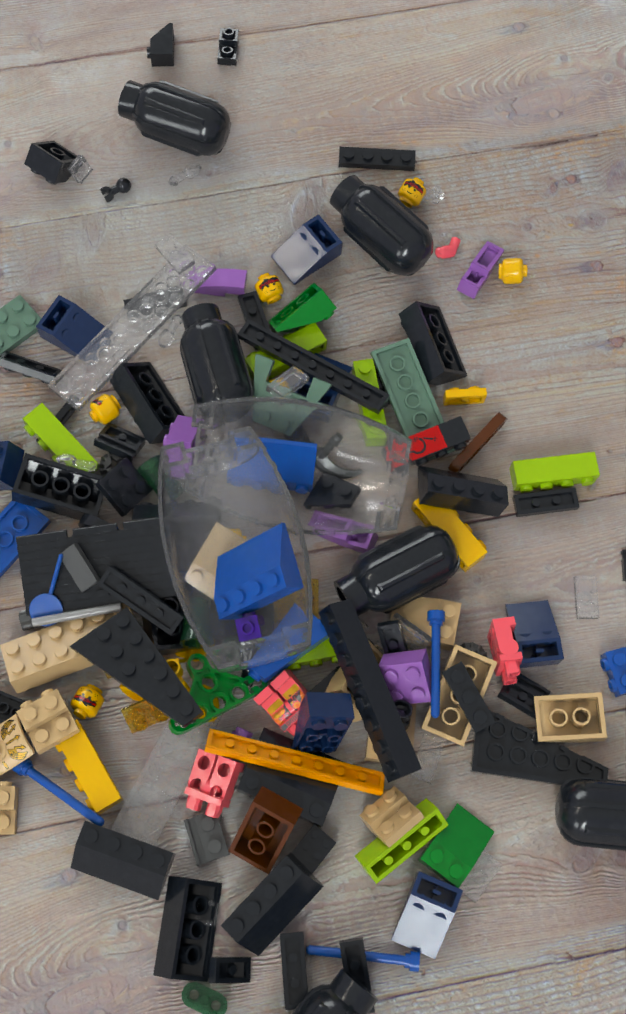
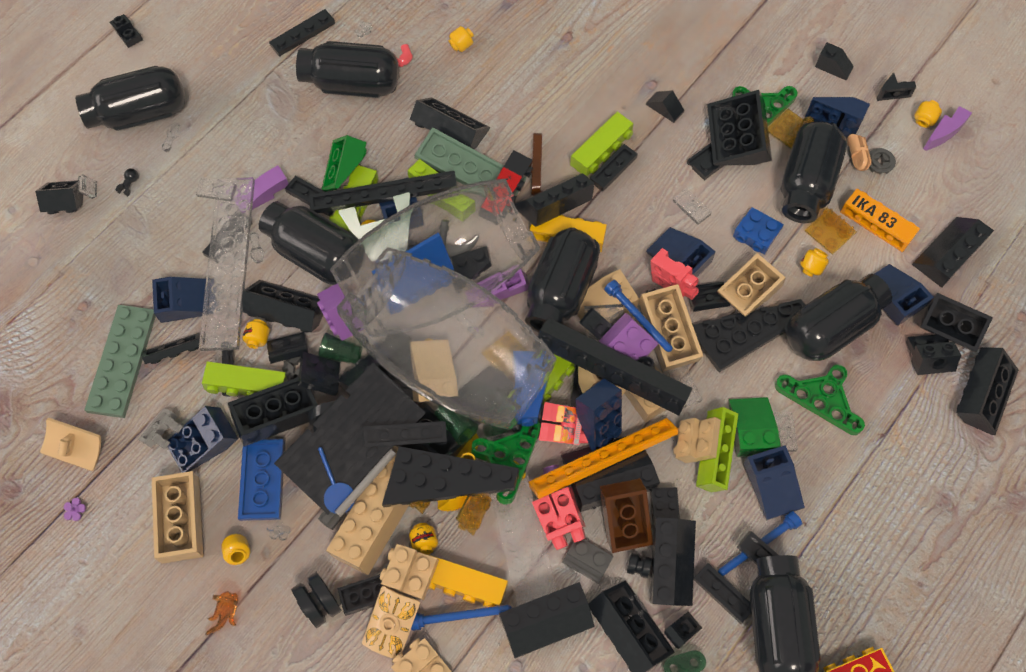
camera: 35 degrees left, 5 degrees down
(72, 461) = (264, 384): clear piece -> none
(79, 567) = (340, 447): dark grey slope -> none
(162, 47) = (77, 63): black slope -> none
(243, 881) = (639, 565): none -> black wheel
(249, 626) = (499, 386): dark purple bracket -> none
(256, 574) = (474, 347): blue slope -> none
(269, 288) = (303, 167): yellow head -> none
(287, 382) = (376, 213): clear tile -> none
(307, 250) = (308, 123): slope -> none
(412, 192) = (347, 33): yellow head -> none
(459, 396) = (500, 141): yellow plate -> none
(468, 697) = (679, 320): black plate -> none
(480, 269) = (438, 54): medium lavender slope -> none
(550, 887) = (832, 402): none -> green beam

